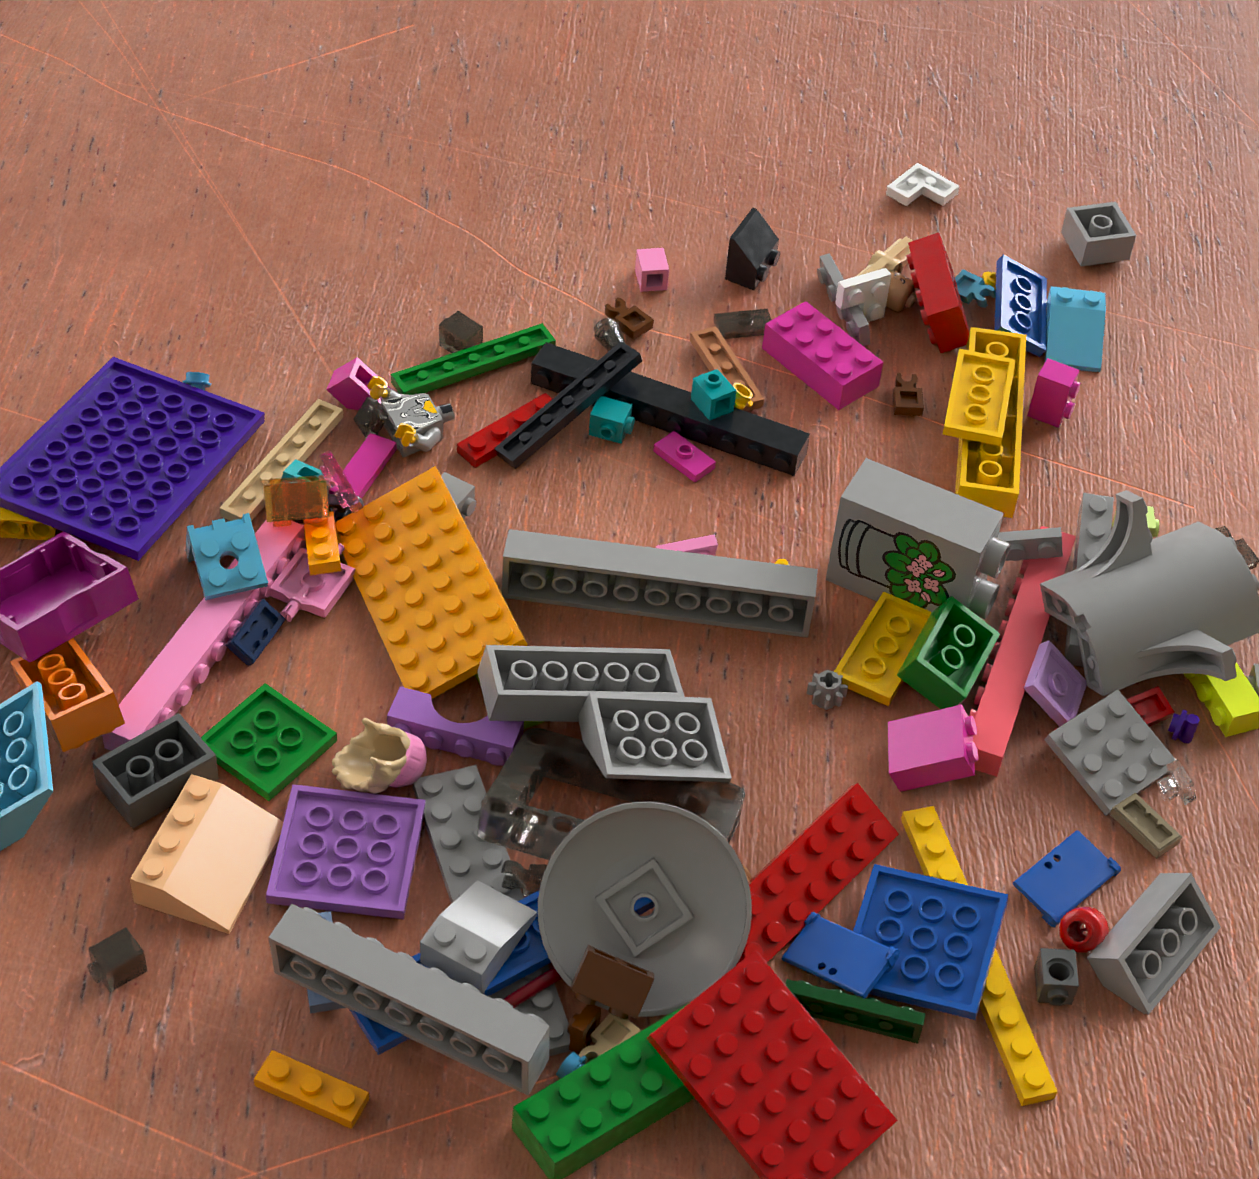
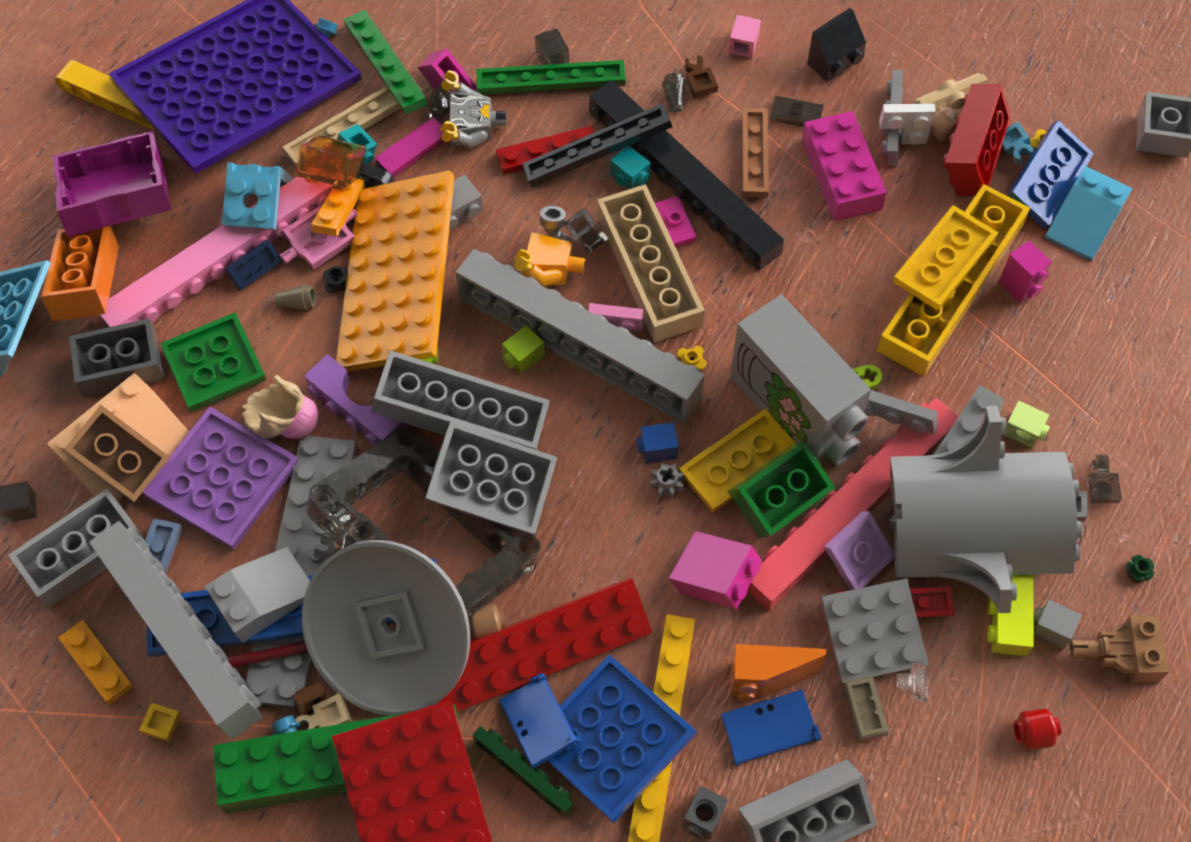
camera: 30 degrees right, 15 degrees up
(221, 979) = (61, 555): none -> light grey brick
(224, 858) = (116, 454): none -> medium nougat brick
(286, 394) = (385, 62): none -> green plate
(324, 649) = (299, 297): none -> dark tan cone
(335, 477) = (374, 152): clear pink plate -> none
(356, 618) = (335, 273): none -> black plate
(427, 1118) = (160, 722): none -> yellow plate
(577, 515) = (549, 255): none -> light orange torso
(604, 486) = (586, 230): none -> clear smoke brick
(604, 618) = (523, 350): none -> lime brick
(611, 983) = (338, 675): reddish brown brick -> none
(686, 493) = (650, 263): none -> tan brick
(713, 394) = (717, 177): teal brick -> none
(743, 396) = (743, 184): yellow plate -> none
(797, 658) = (658, 443): none -> blue brick
(907, 398) = (897, 230): reddish brown plate -> none
(922, 181) = (1033, 20): white plate -> none
(1037, 817) = (767, 669): none -> orange slope
(1073, 931) = (750, 782): red head -> none
(1184, 726) = (953, 630): dark purple plate -> none

